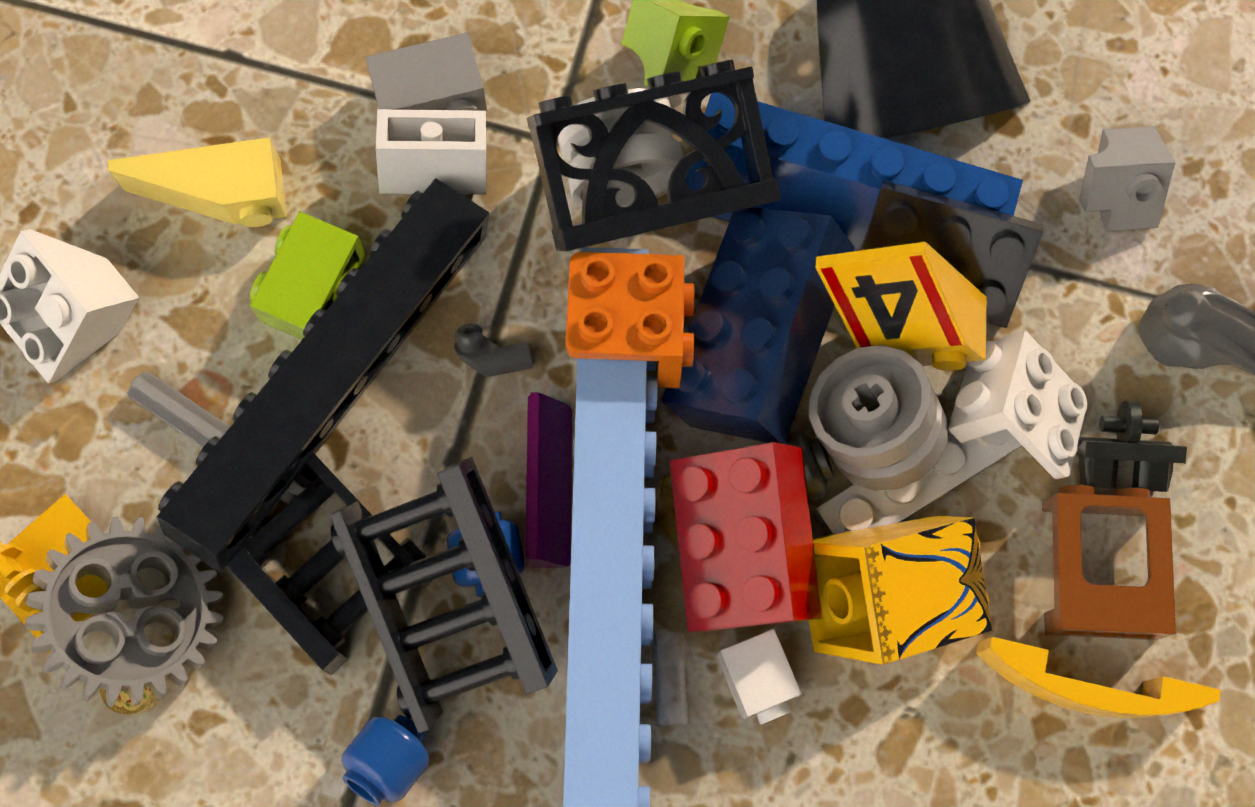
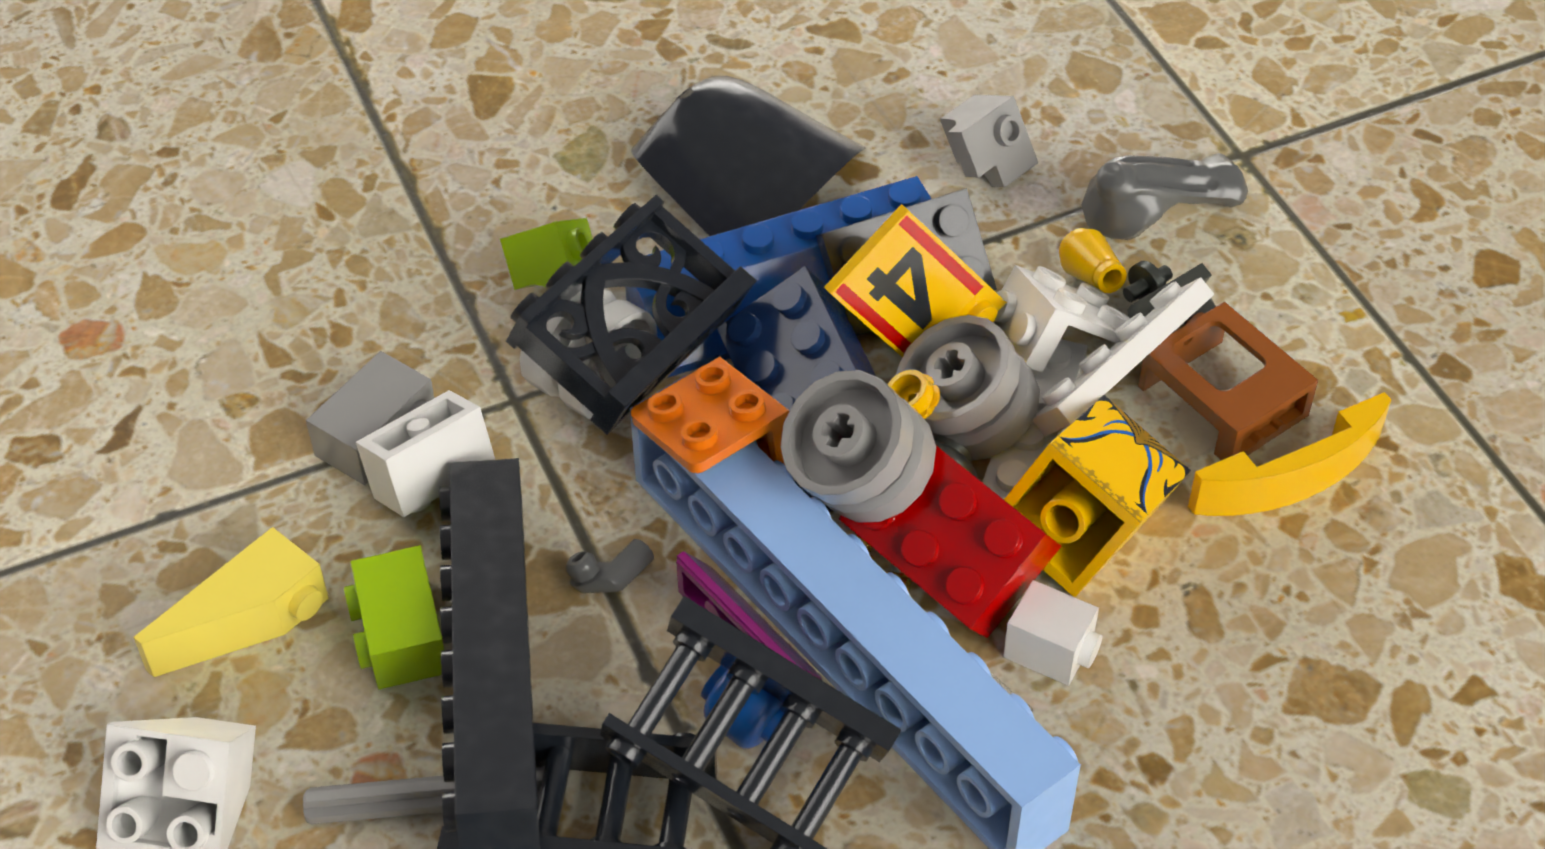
camera: 35 degrees left, 25 degrees down
(706, 433) = (858, 446): none -> light grey wheel
(805, 393) = (917, 390): none -> yellow plate
(1014, 490) = (1108, 366): none -> white plate
(1105, 365) = (1090, 258): none -> yellow cone

